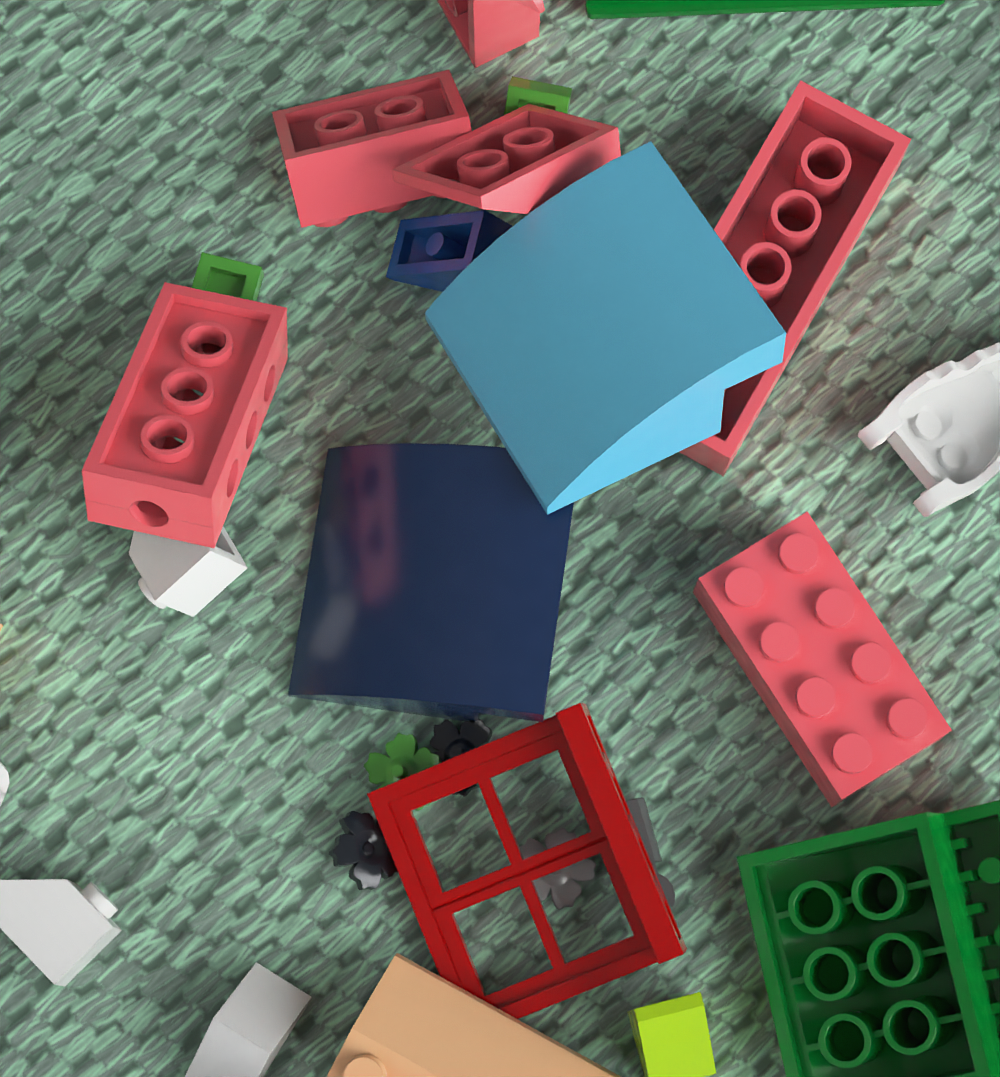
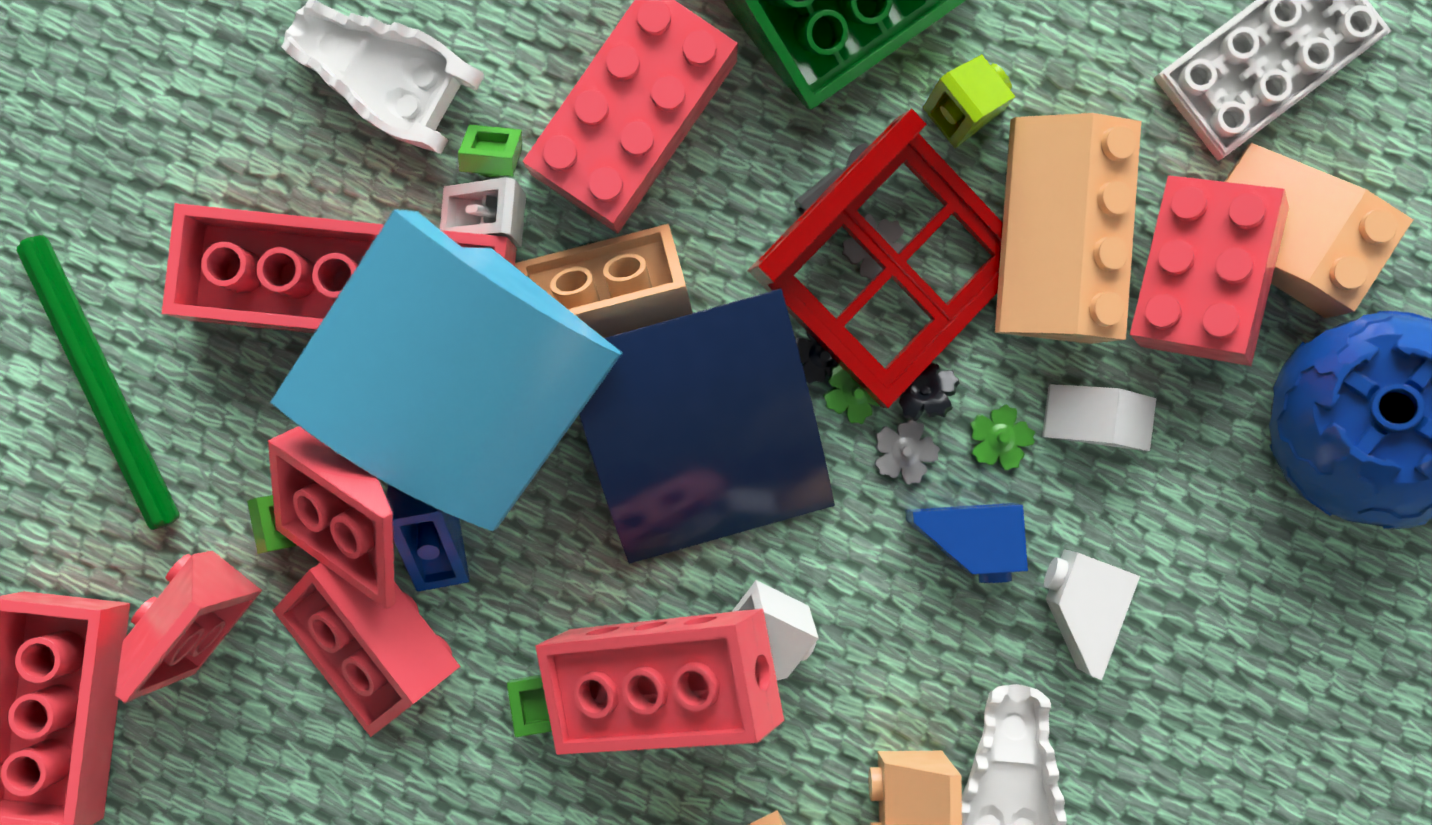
camera: 115 degrees left, 10 degrees up
(182, 827) = (977, 537): none -> blue slope
(277, 913) = (1000, 438): none -> bright green plant
(311, 799) = (905, 451): none -> light grey plant
(634, 556) = (616, 281): none -> light nougat slope
(773, 455) = (485, 208): none -> white slope
(840, 490) = (490, 151): none -> bright green plate

